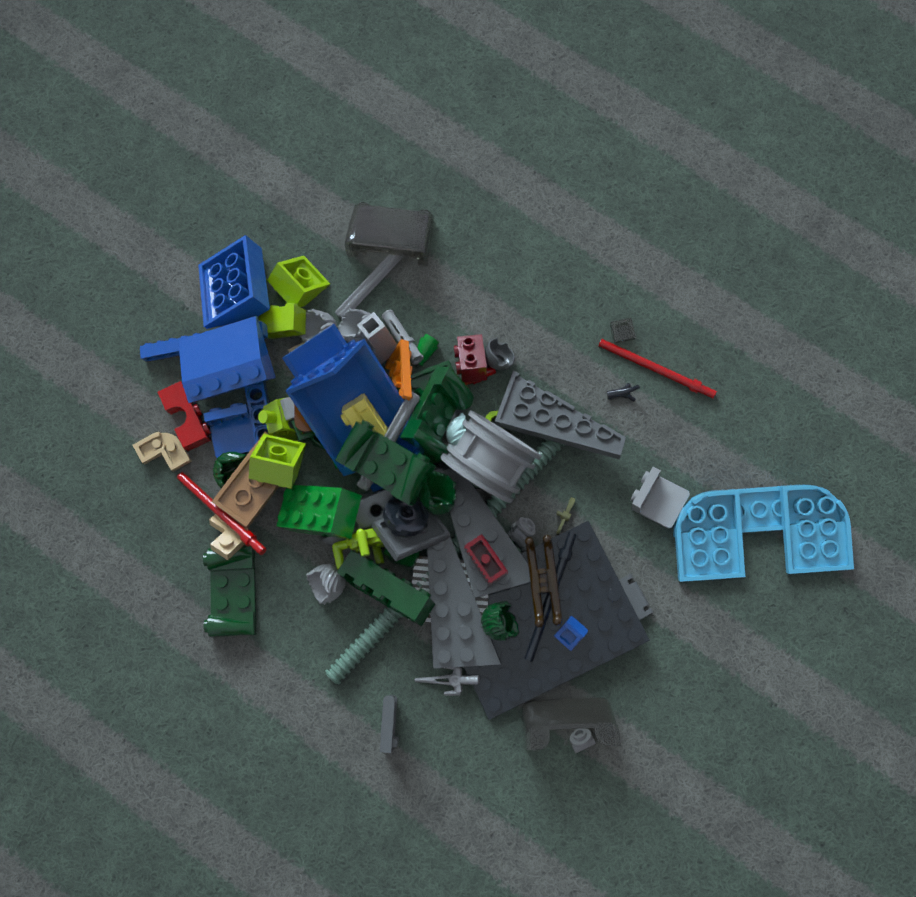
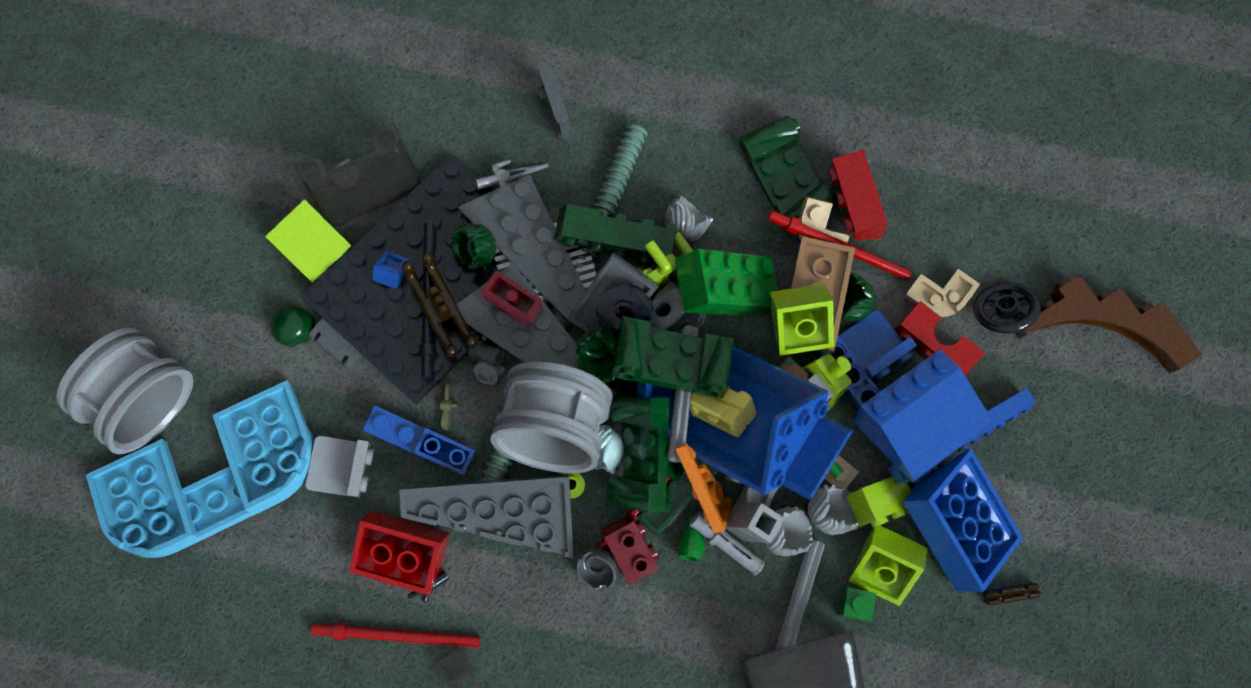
camera: 160 degrees right, 0 degrees up
(29, 367) = (1148, 326): none -> reddish brown arch
(130, 403) = (1007, 308): none -> black plate
(188, 543) = (858, 196): none -> red slope
(223, 232) = (1011, 594): none -> dark brown axle
(332, 264) = (857, 604): none -> green brick
(594, 496) = (418, 440): none -> blue slope
(630, 689) = (308, 241): none -> lime slope
(636, 419) = (398, 552): none -> red slope
(663, 625) = (292, 326): none -> dark green hair
(806, 612) = (124, 390): none -> light grey wheel

